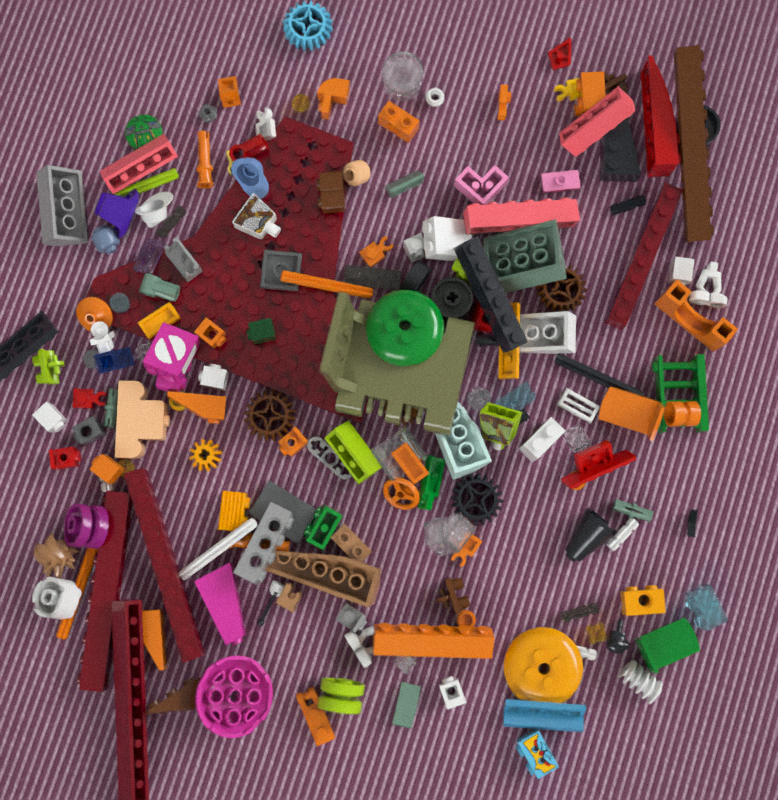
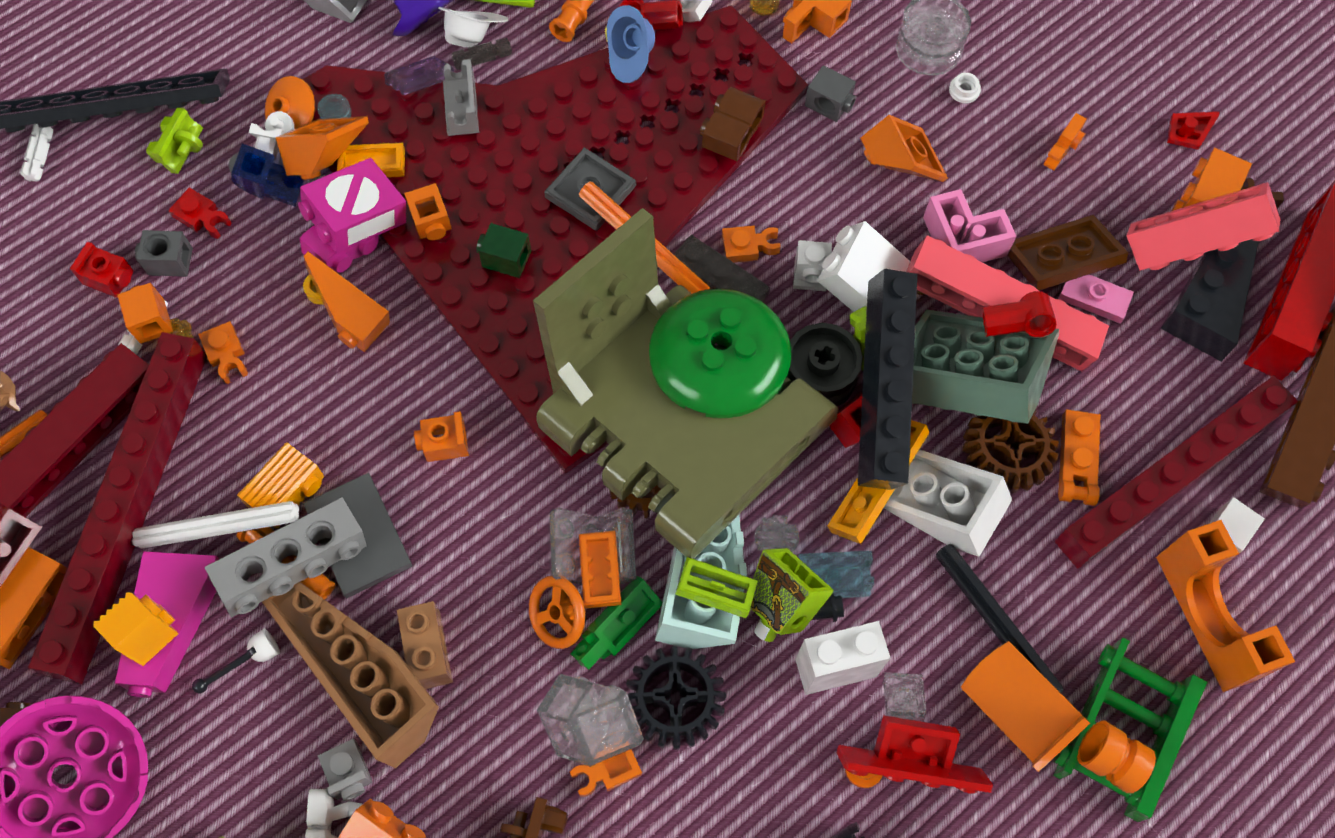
camera: 30 degrees right, 15 degrees down
(50, 417) = (126, 205): white brick -> none
(85, 526) = (55, 377): magenta wheel -> none
(105, 239) = (376, 25): sand blue head -> none
(111, 409) = (220, 242): sand green pin -> none
(128, 328) = (317, 144): none -> orange slope
(138, 420) = (242, 277): light nougat brick -> none
(153, 460) = (223, 348): none -> orange plate
(154, 286) = (396, 112): sand green piece -> none
(200, 451) = (301, 380): light orange gear -> none
(213, 377) = (393, 281): white brick -> none
(224, 617) = (137, 627): none -> light orange brick
(256, 219) = (599, 101): torso -> none
(270, 407) = (446, 358): reddish brown gear -> none
(287, 598) = (261, 667): medium nougat hinge -> none
(316, 452) = (497, 502): light grey beam -> none
(323, 526) = (397, 588): green brick -> none
(353, 452) = (523, 502): lime brick -> none
(356, 172) = (786, 121): light nougat head -> none
(369, 142) = (830, 94): none -> dark grey brick
(398, 121) = (891, 87): orange brick -> none
(405, 183) = (850, 177): sand green slope -> none
(416, 277) = (789, 299): black tyre -> none
(425, 155) = (902, 149): none -> orange slope
(453, 446) = (715, 593): none -> lime tile
(485, 340) = (841, 457): black pin -> none
(535, 167) = (1066, 252): none -> reddish brown plate
(538, 221) = (1031, 314): none -> red piece
(563, 398) = (925, 653): white tile -> none
(568, 90) = (1173, 176): yellow plate -> none
(595, 273) = (1079, 457): none -> orange plate
(628, 205) = (1189, 384): black axle -> none
(703, 297) = (1248, 590): white piece -> none

